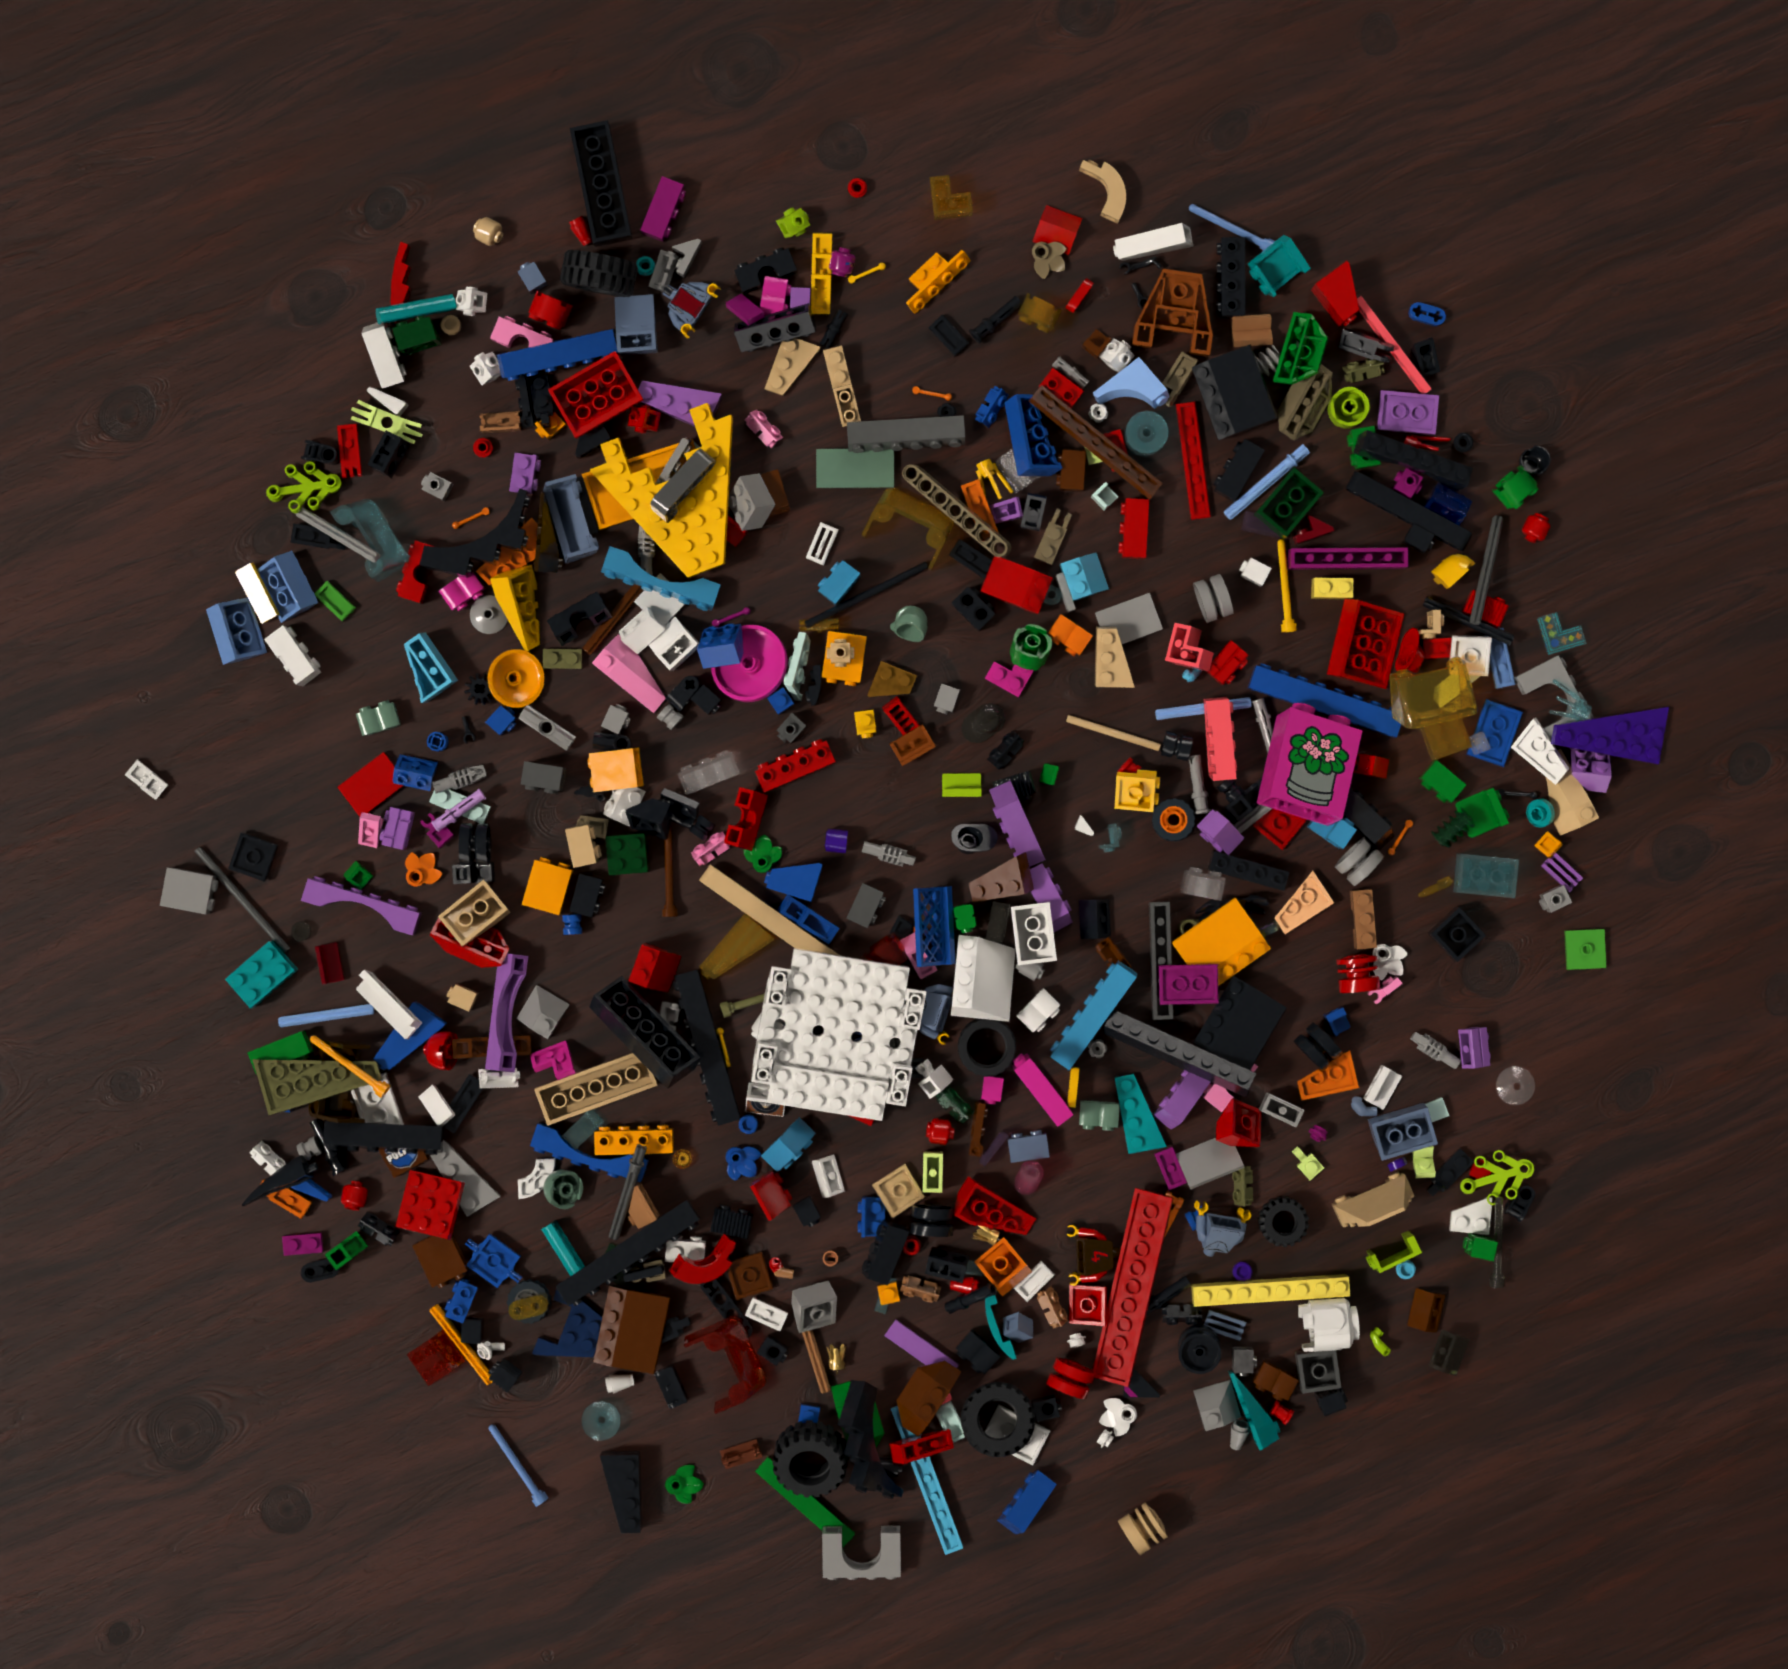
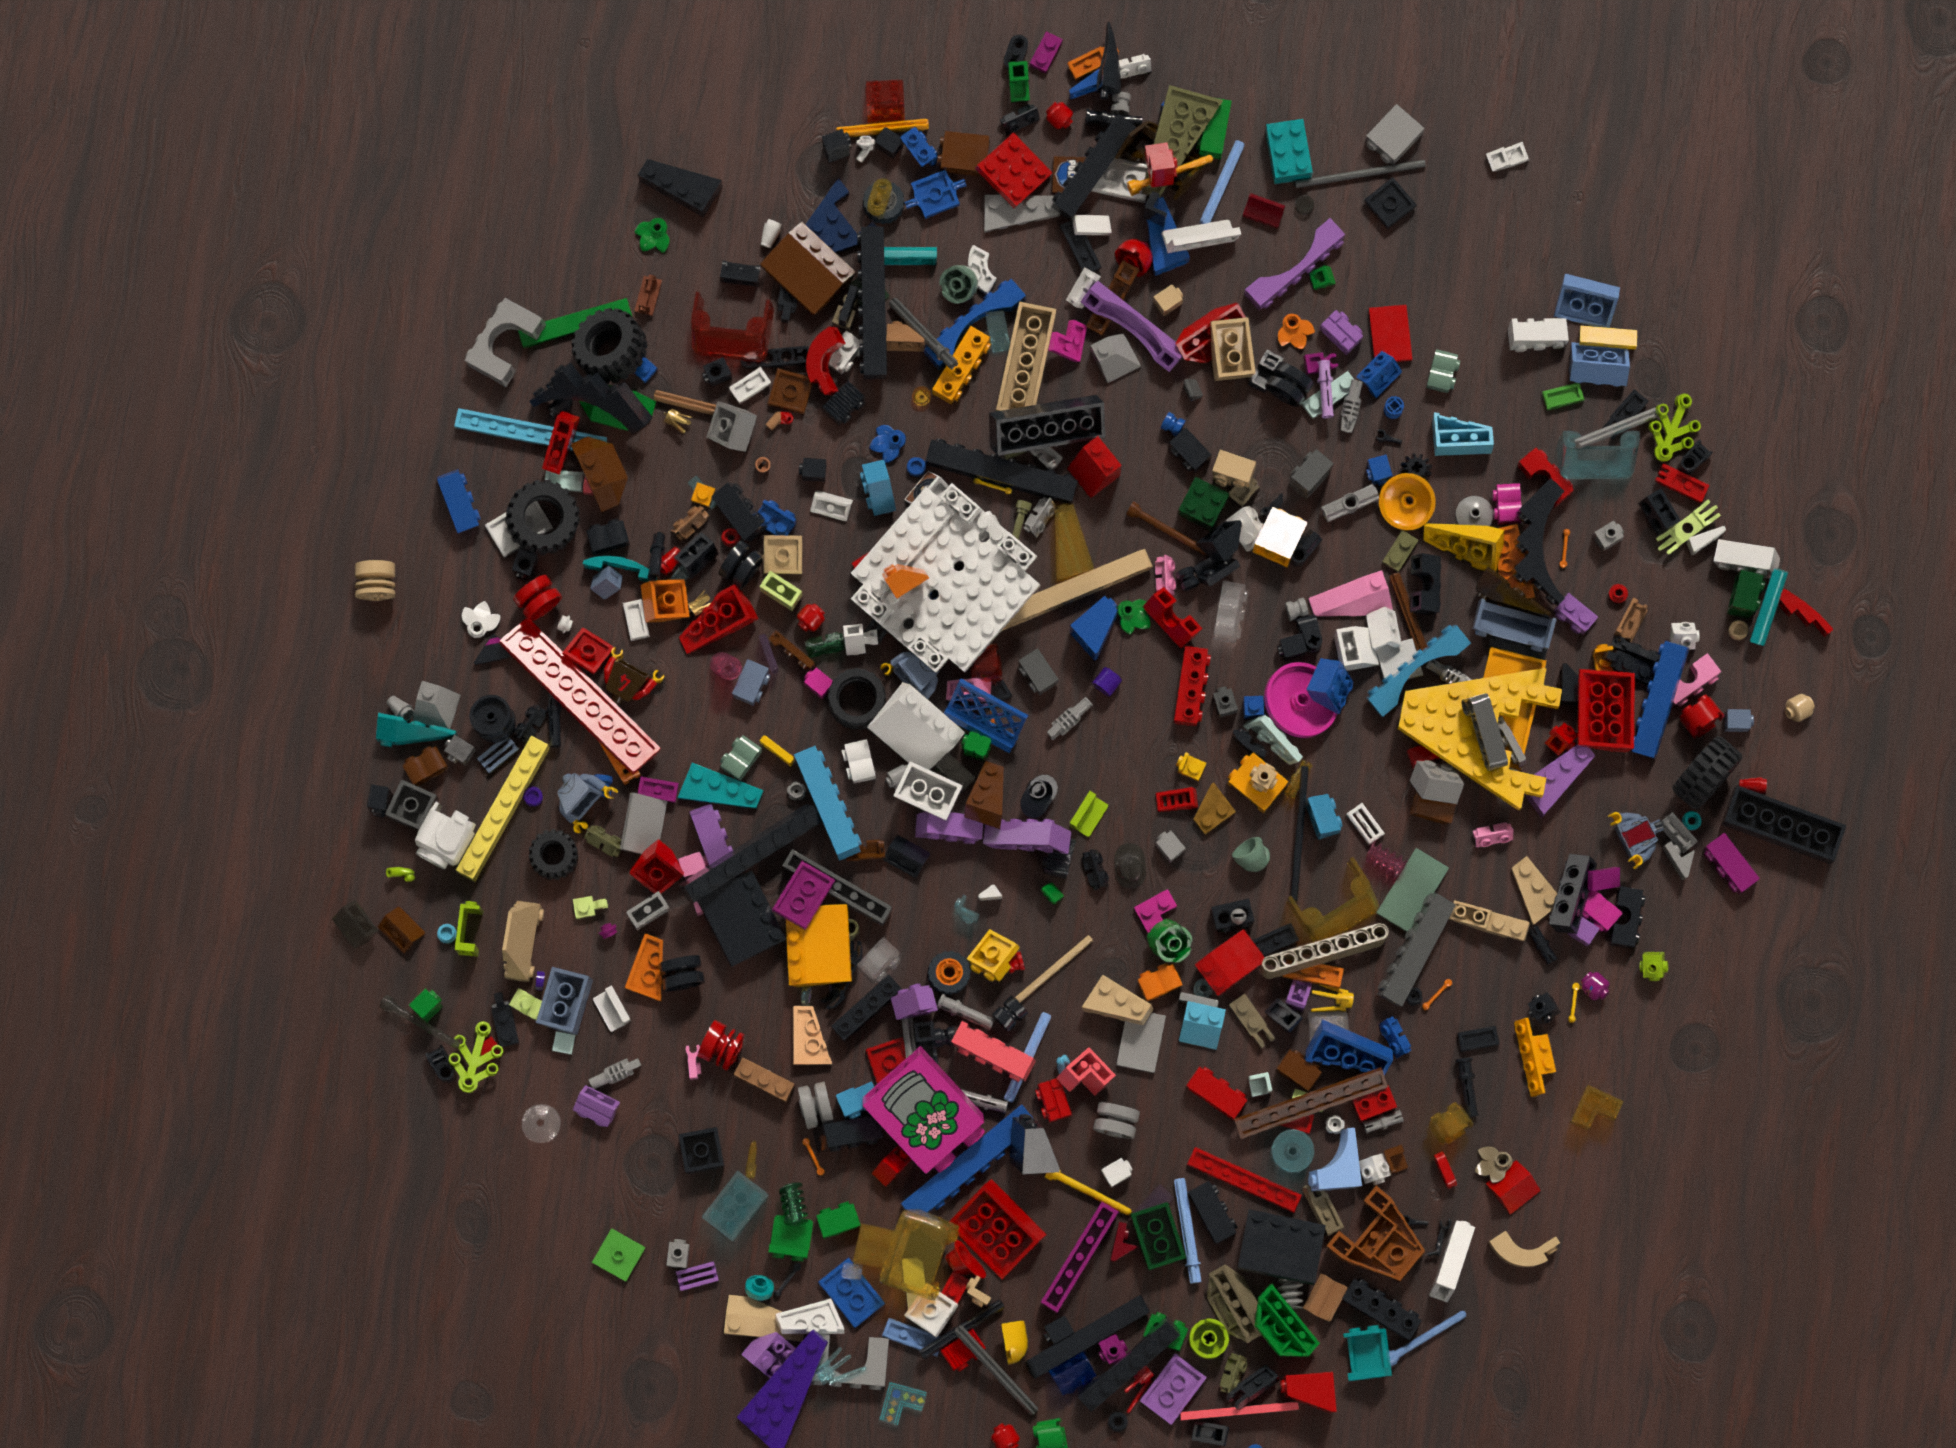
camera: 120 degrees right, 10 degrees down
(347, 1077) = (1160, 164): none -> brick
(370, 829) = (1354, 309): bright pink slope -> none
(396, 1059) = (1152, 213): none -> black panel
(471, 301) = (1748, 657): white brick -> none
(529, 926) = (1192, 389): none -> dark grey slope
(537, 1495) = (719, 113): medium blue piece -> none
(547, 886) = (1217, 423): light orange panel -> none
(598, 1430) = (747, 191): clear light blue dish -> none
(616, 719) = (1322, 563): light grey brick -> none
(635, 325) = (1645, 781): sand blue slope -> none
(716, 623) = (1352, 695): magenta hinge -> none
(734, 988) = (1045, 509): none -> light grey hinge
(771, 1194) = (847, 446): red slope -> none
(808, 919) = (1055, 619): blue slope -> none
(821, 273) = (1594, 962): yellow slope -> none
(843, 506) = (1385, 859): none -> clear pink piece
(857, 181) = (1655, 1034): red plate -> none
(862, 1070) = (903, 578): none -> orange slope
(885, 289) = (1543, 1008): none -> black brick
(912, 745) = (1148, 793): dark orange hinge -> none
(916, 1345) = (644, 491): medium lavender tile -> none
(969, 604) = (1238, 920): none -> light grey hinge
(1041, 1089) = (794, 718): dark pink window -> none
(1049, 1299) = (596, 621): medium nougat hinge -> none
(1105, 1438) = (468, 597): white plate -> none
(1281, 1412) = (395, 755): red bush -> none
(1285, 655) = (1030, 1147): none -> slope
(1332, 588) = (1062, 1229): light yellow brick -> none
(1337, 1021) = (691, 1005): blue panel -> none
(1360, 1108) = (605, 979): sand blue arm -> none
(1391, 962) = (712, 1081): white plate -> none
(1472, 1218) = (453, 1016): white wing -> none
(1548, 845) = (727, 1278): light orange tile -> none

